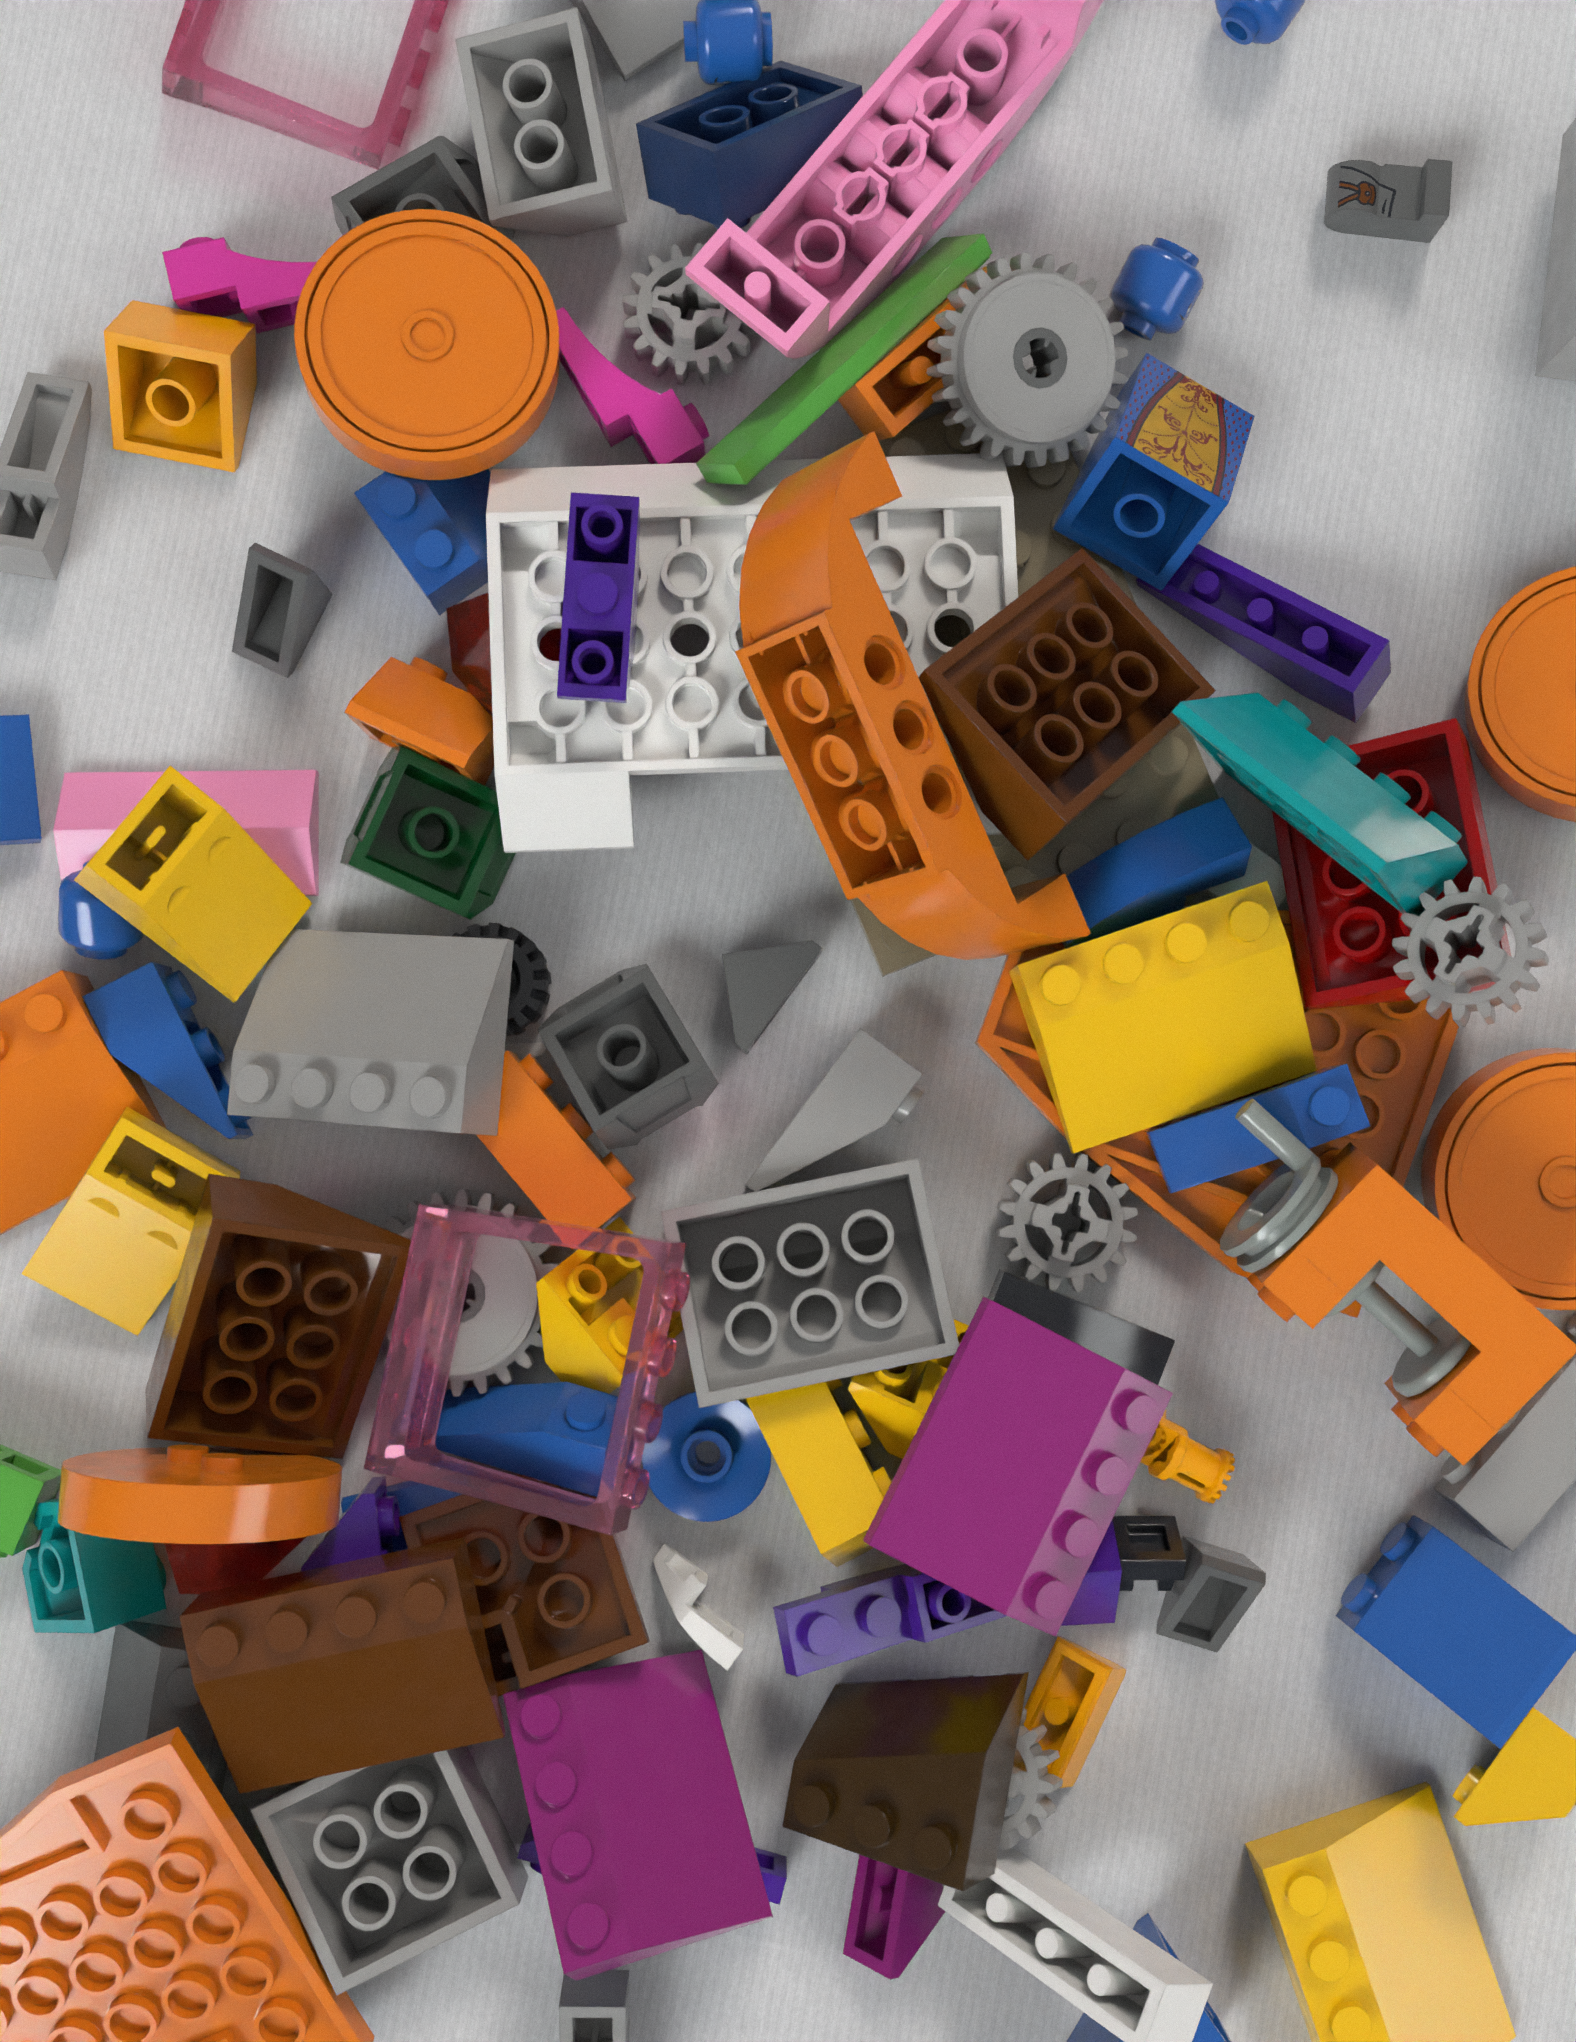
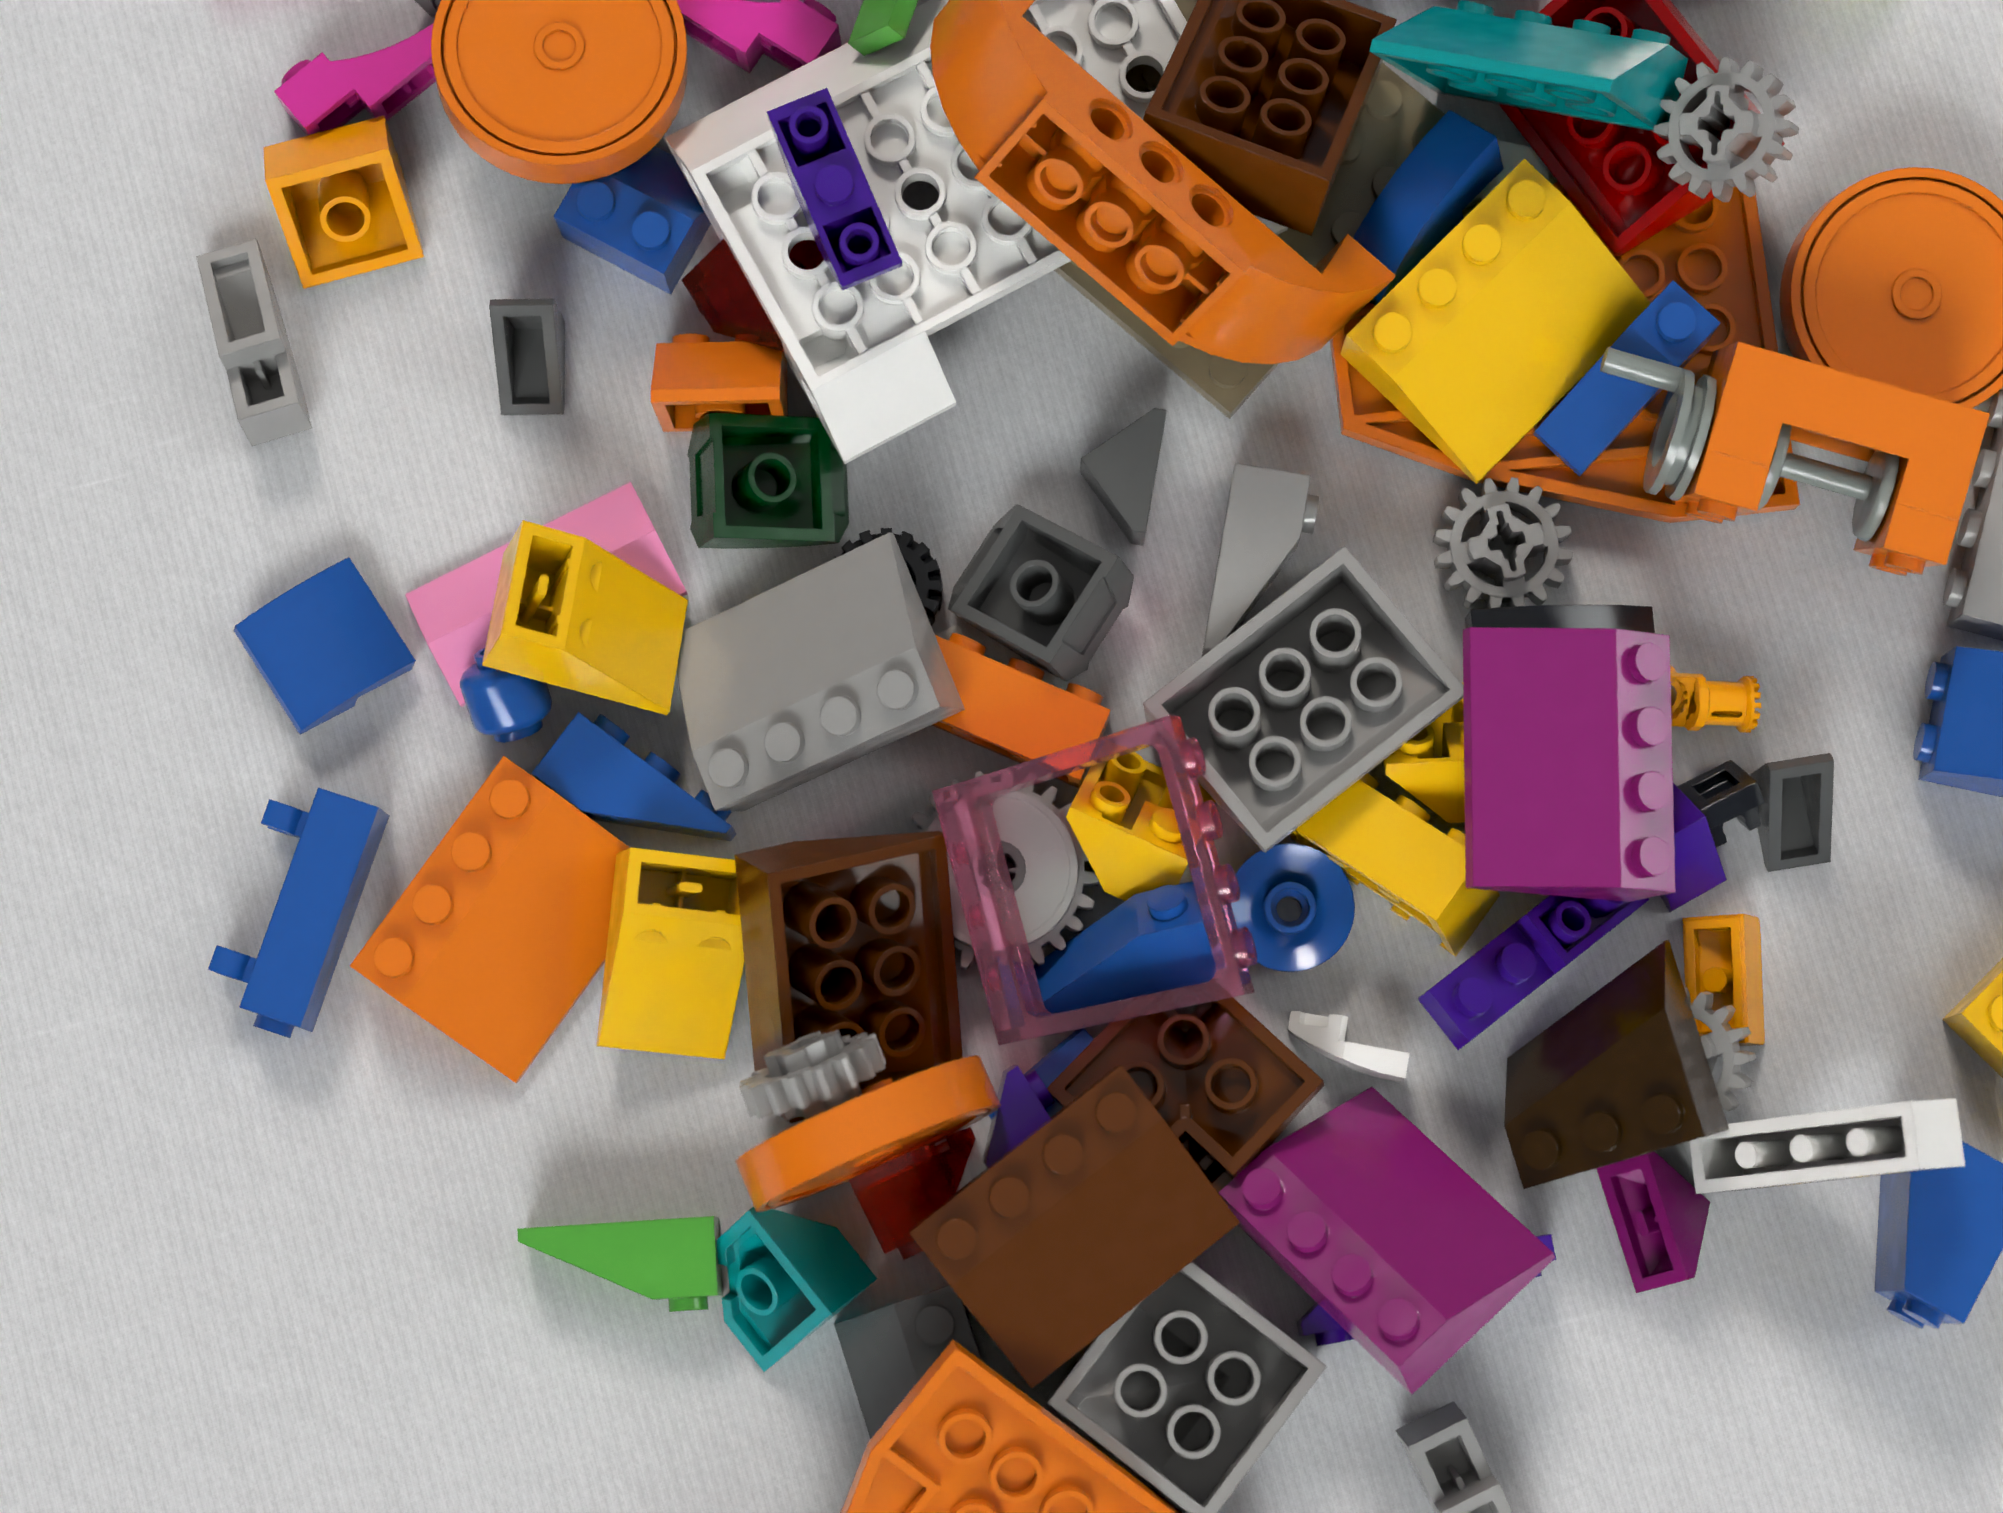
camera: 20 degrees left, 5 degrees down
(164, 1424) = (812, 1075): none -> light grey gear

